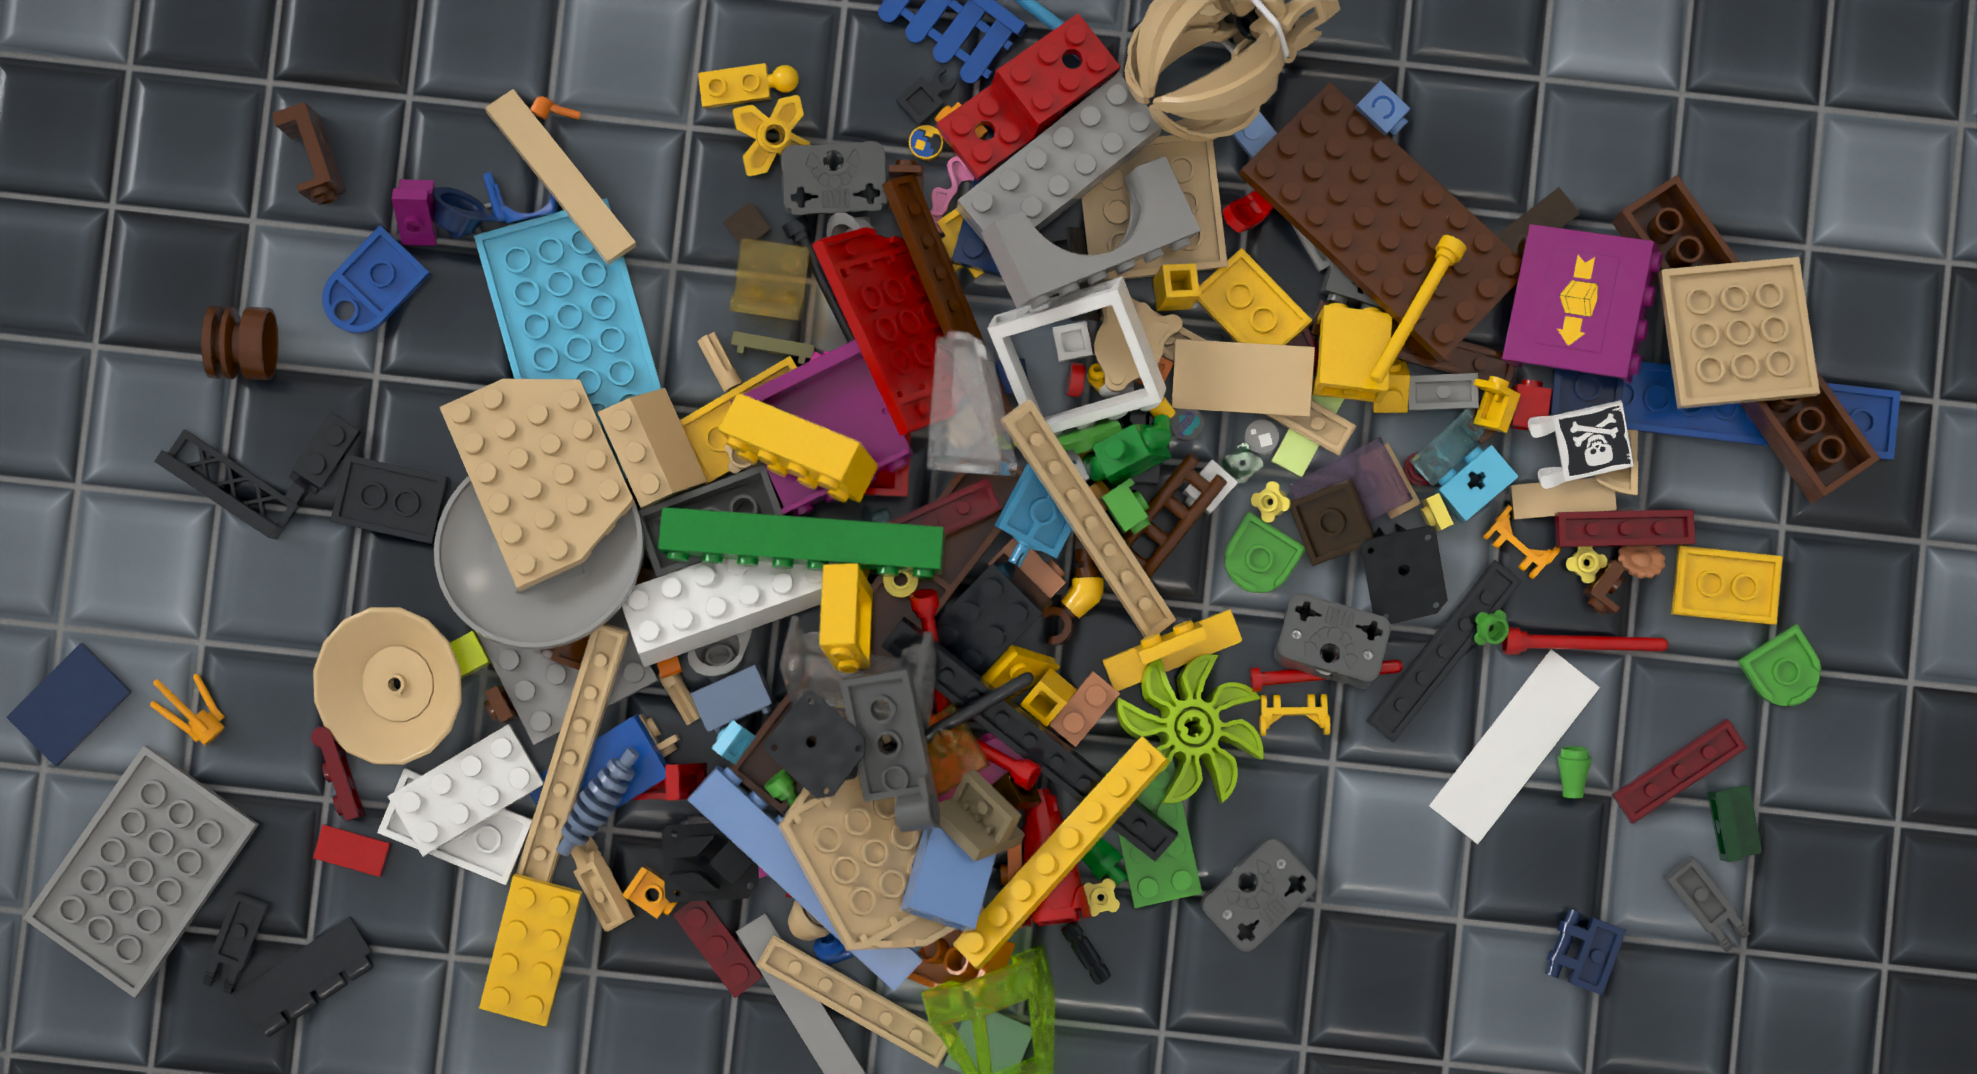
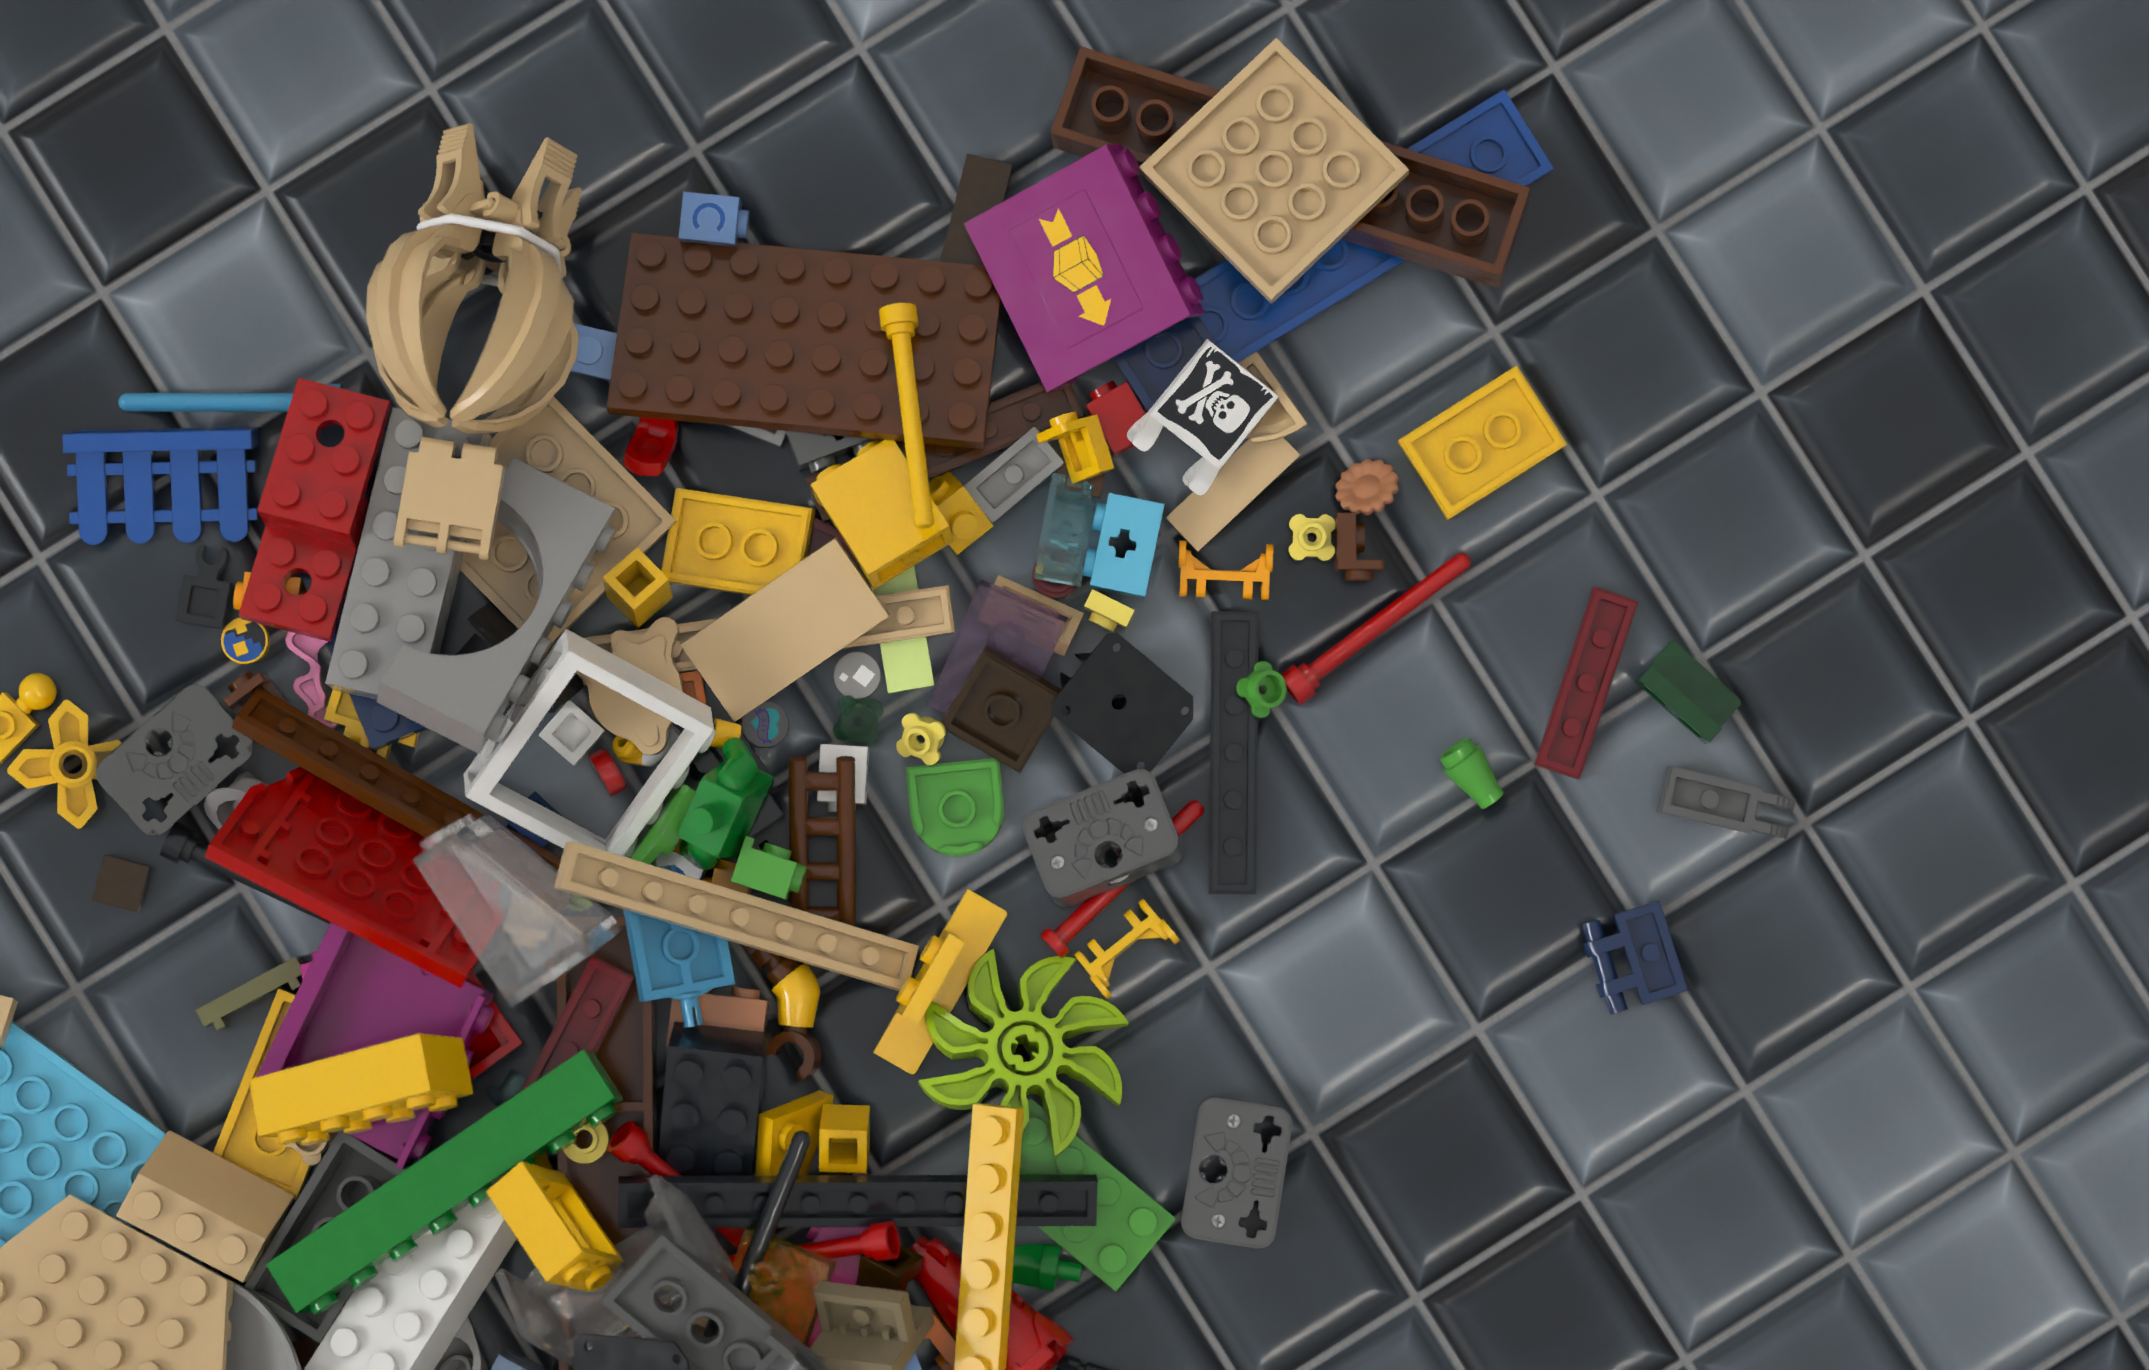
camera: 30 degrees left, 0 degrees up
(719, 362) = (207, 1054): tan piece -> none
(770, 279) = (192, 922): clear yellow bracket -> none
(1084, 708) = (893, 1121): nougat brick -> none
(1105, 888) = (1084, 1308): light yellow plate -> none
(1114, 149) = (450, 497): none -> tan plate
(1514, 746) = (1389, 795): white sticker -> none
(1624, 528) = (1323, 469): dark red plate -> none
(1783, 668) = (1612, 485): bright green tile -> none

